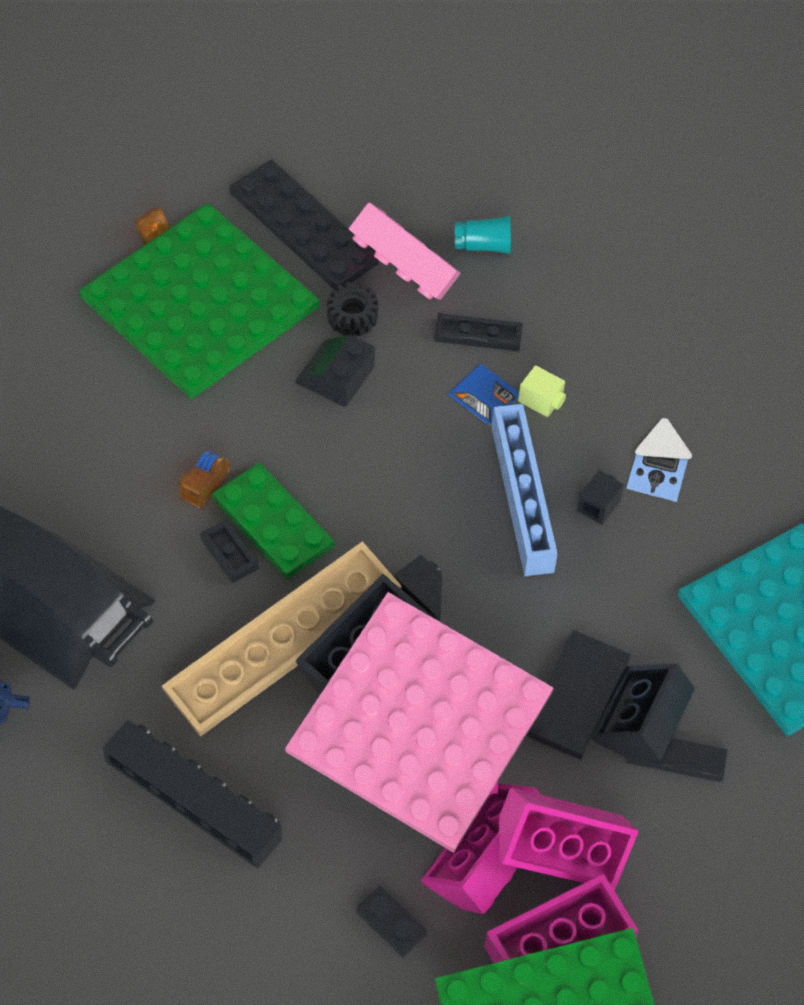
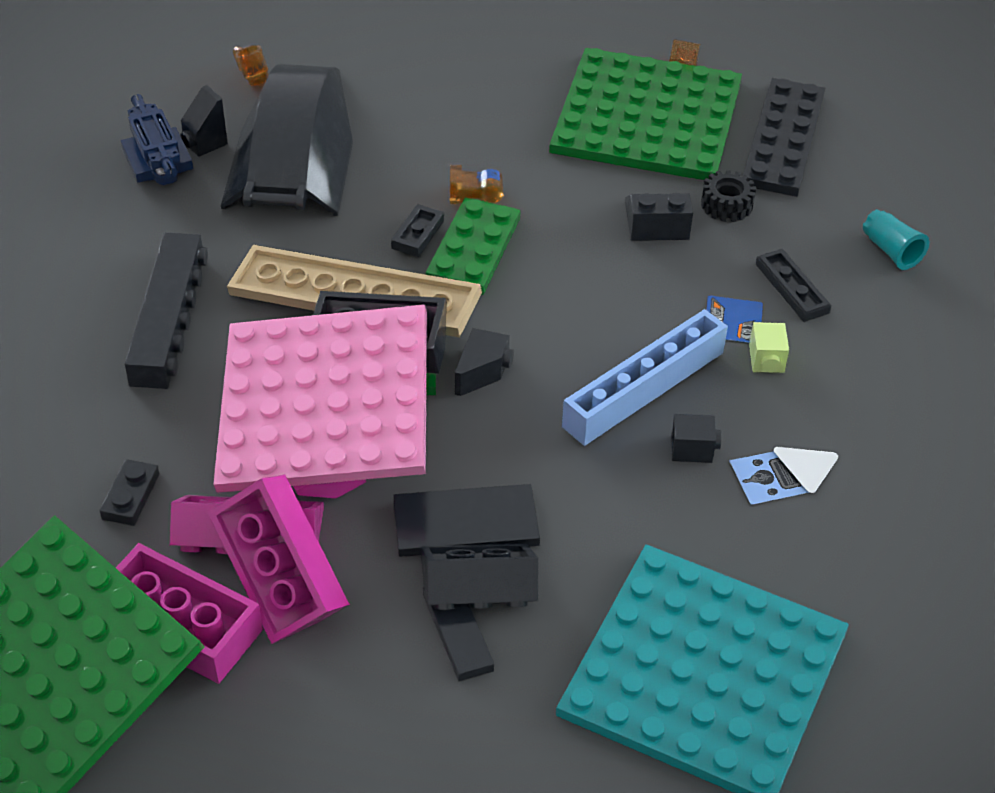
camera: 60 degrees right, 10 degrees down
(404, 252) = (814, 189): bright pink wedge -> none

